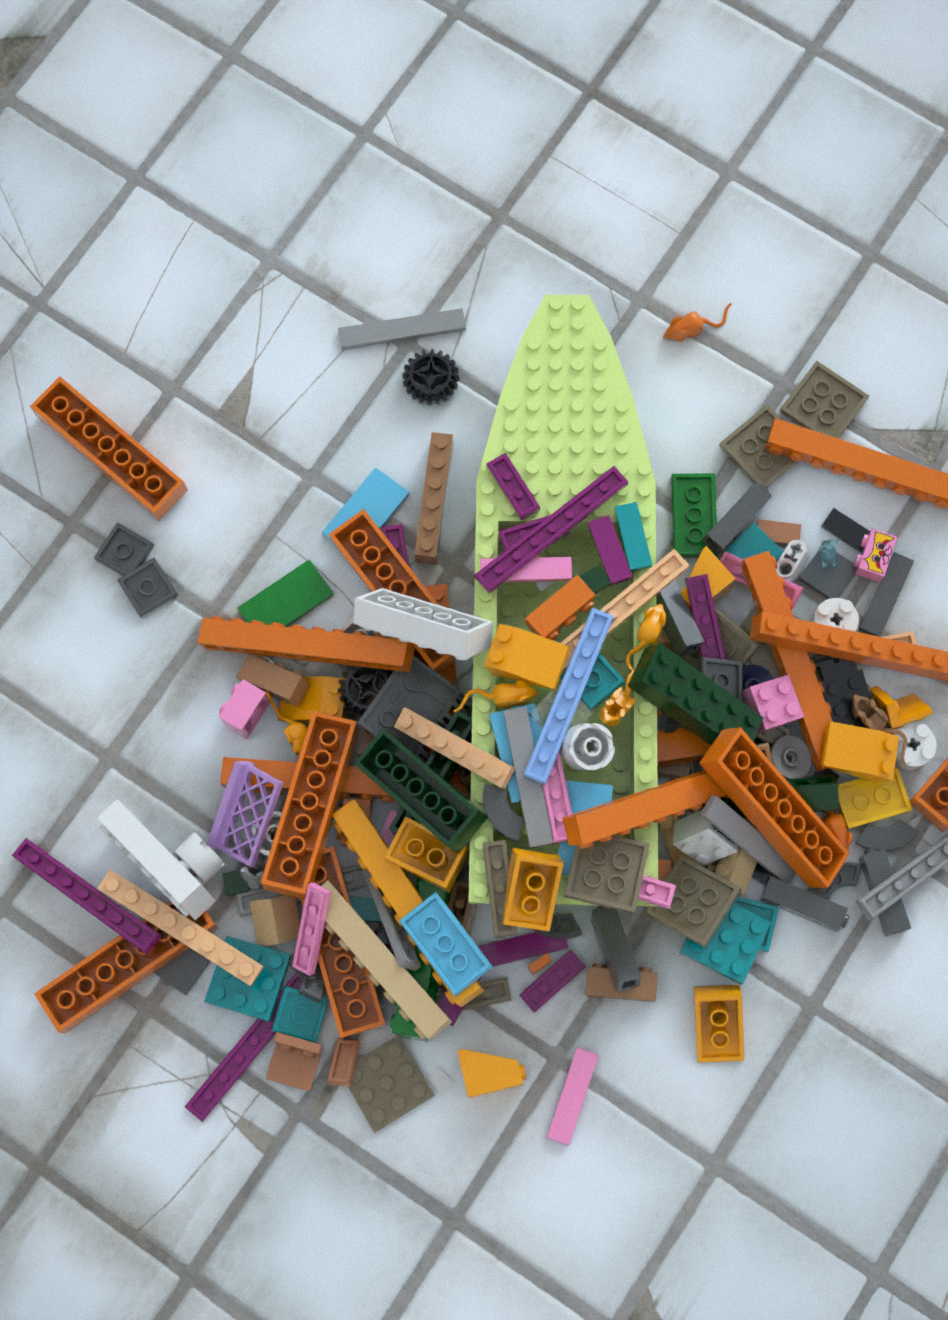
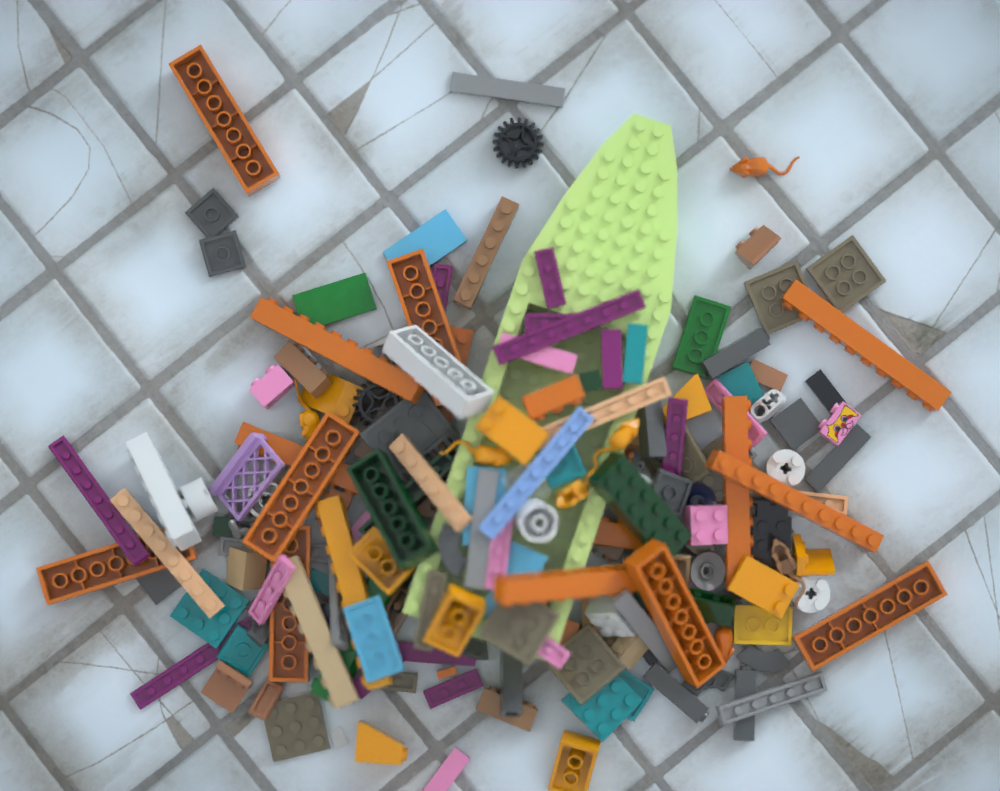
camera: 15 degrees right, 10 degrees up
(720, 402) = (757, 246): none -> nougat slope
(828, 553) = (801, 409): clear light blue slope -> none

